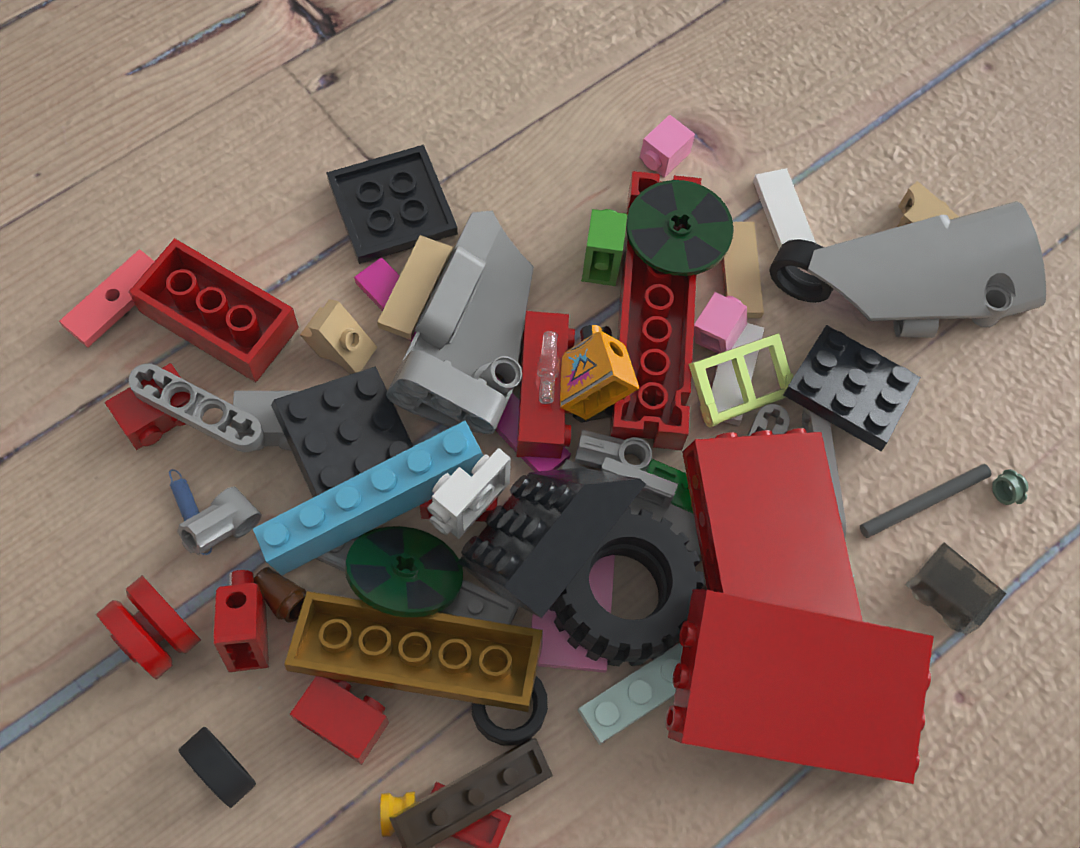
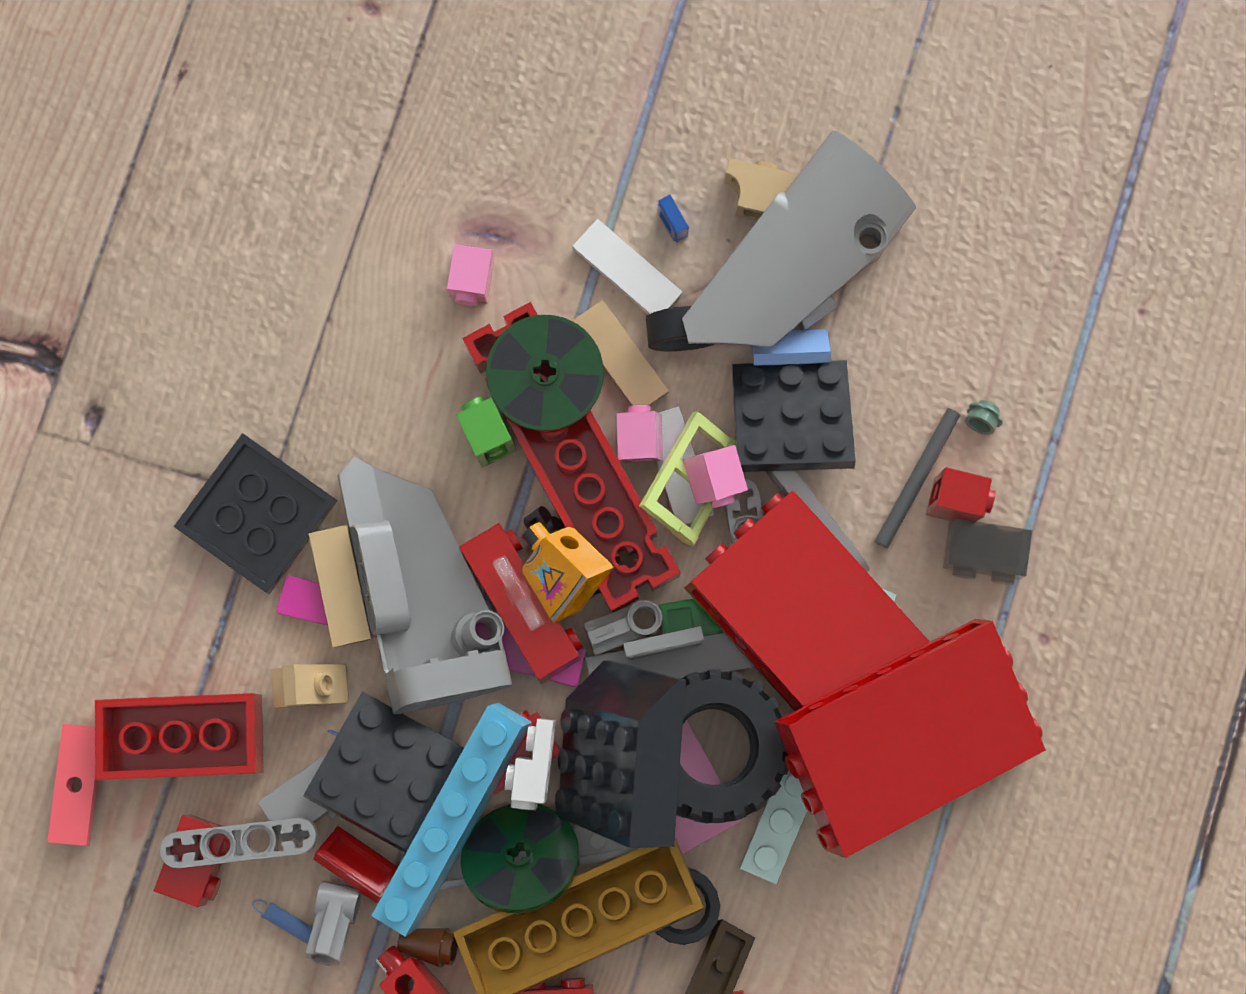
camera: 25 degrees left, 15 degrees up
(269, 486) = (356, 864): none -> red tile
(764, 383) = (715, 476): none -> bright pink brick
(845, 200) = (672, 218): none -> blue tile
(881, 340) = (796, 348): none -> light blue tile
(962, 525) = (960, 496): none -> red brick

